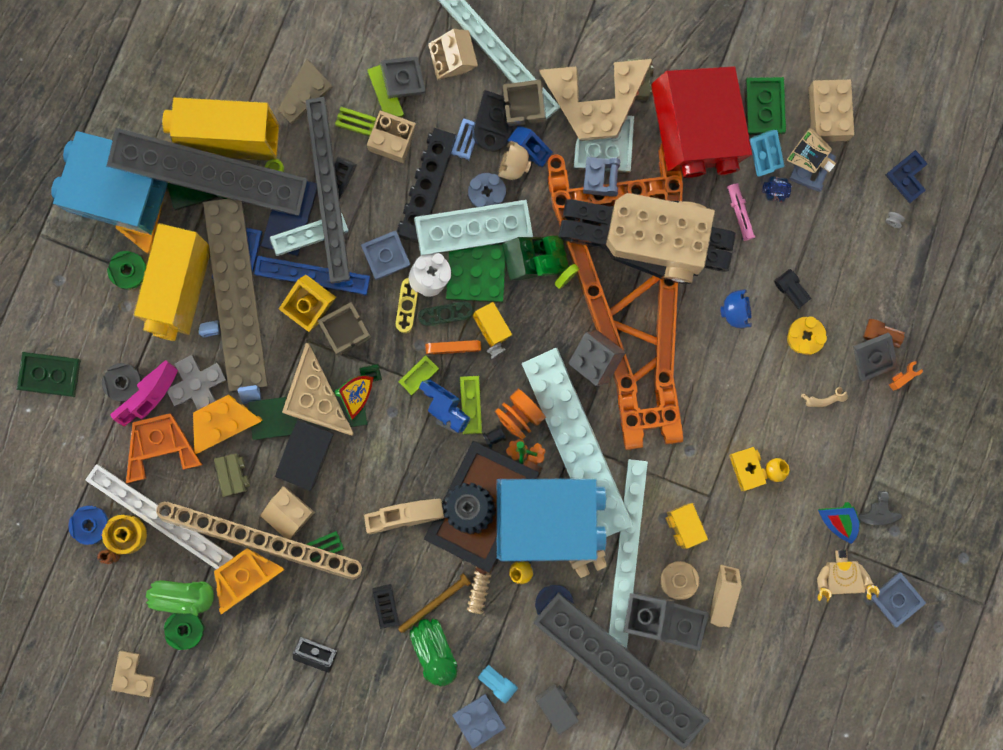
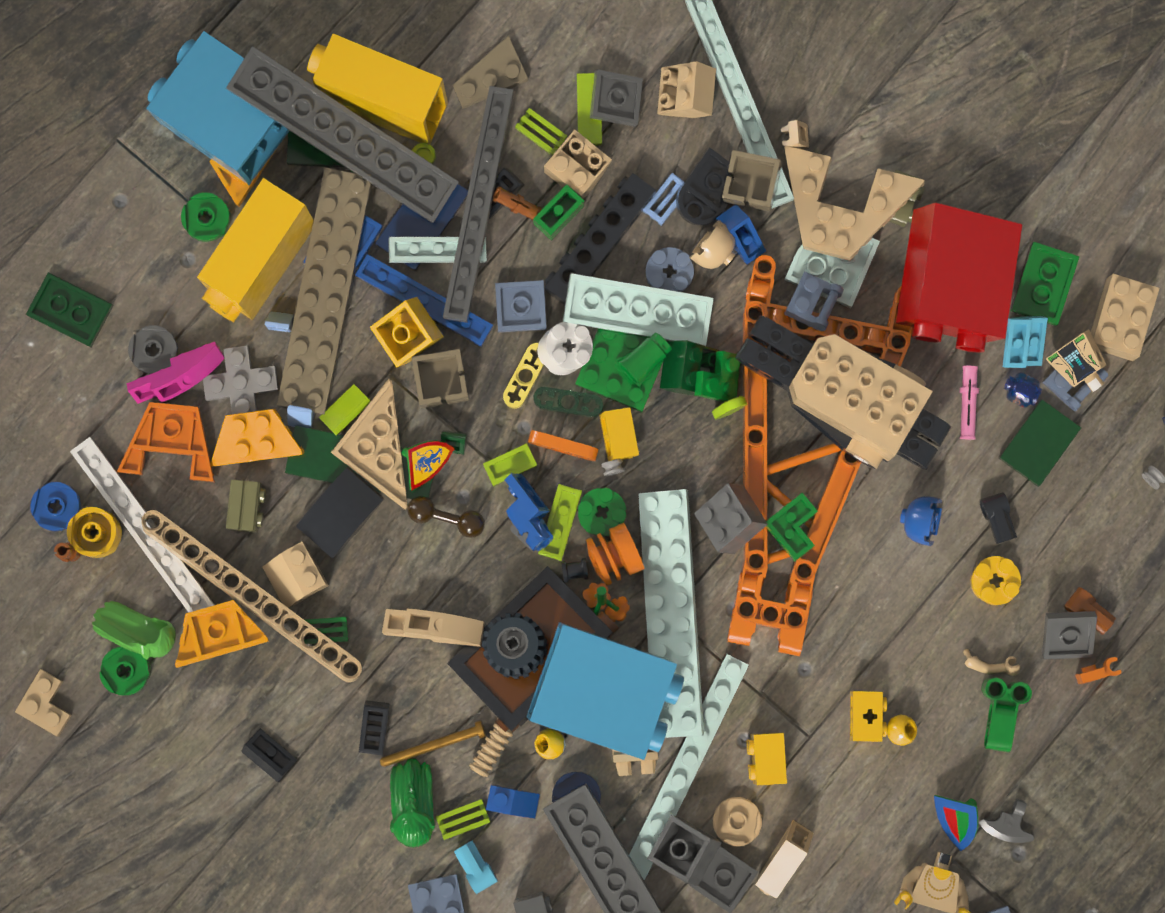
camera: 20 degrees right, 0 degrees up
(281, 377) = (345, 409): none -> lime tile
(356, 180) = (516, 203): none -> dark orange pin
(365, 431) = (423, 510): none -> dark brown piece
(389, 175) = (558, 212): none -> green brick
(471, 665) = (443, 827): none -> lime tile
(488, 386) = (588, 508): none -> green plate
(491, 261) = (644, 358): none -> green plant
(508, 625) = (512, 801): none -> blue slope
(546, 58) = (798, 134): none -> tan tile
(640, 349) = (786, 526): none -> green plate
(803, 223) = (1040, 443): none -> dark green tile
(846, 431) = (1002, 713): none -> green piece

